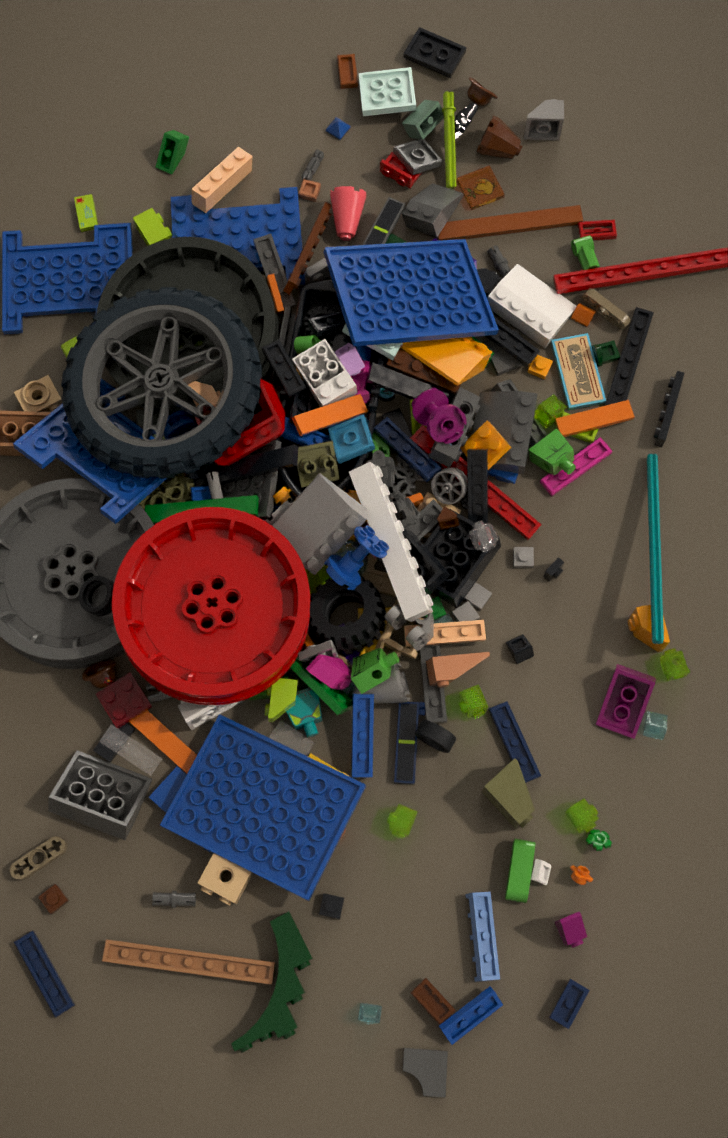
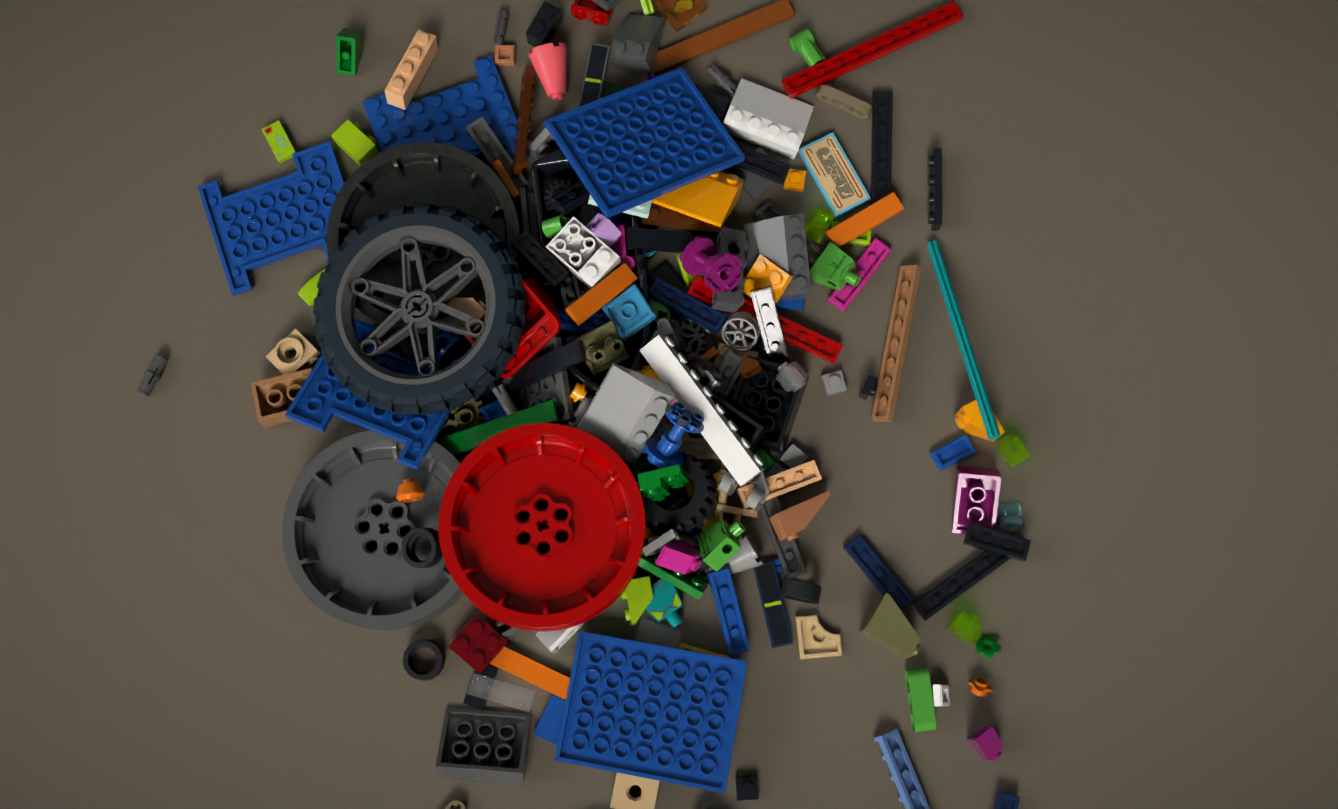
camera: 15 degrees left, 5 degrees up
(58, 690) = (407, 660): none -> black tyre
(100, 674) = (446, 624): reddish brown hat -> none
(103, 543) = (410, 491): none -> orange cone
(329, 595) = (656, 483): none -> green plate
(353, 171) = (544, 25): none -> black brick
(401, 821) = (791, 685): clear neon green brick -> none
(436, 786) = (815, 640): none -> tan tile
(473, 702) = (827, 545): clear neon green brick -> none
(478, 596) = (800, 435): light grey tile -> none
(520, 649) = (857, 477): black slope -> none
(583, 314) = (822, 113): orange slope -> none
(591, 537) = (896, 343): none -> medium nougat plate
(598, 233) = (810, 12): red tile -> none
(599, 769) = (958, 583): none -> black tile
(605, 353) = (856, 147): dark green tile -> none
(617, 651) = (953, 452): none -> blue tile
(635, 744) = (997, 542): none -> black plate

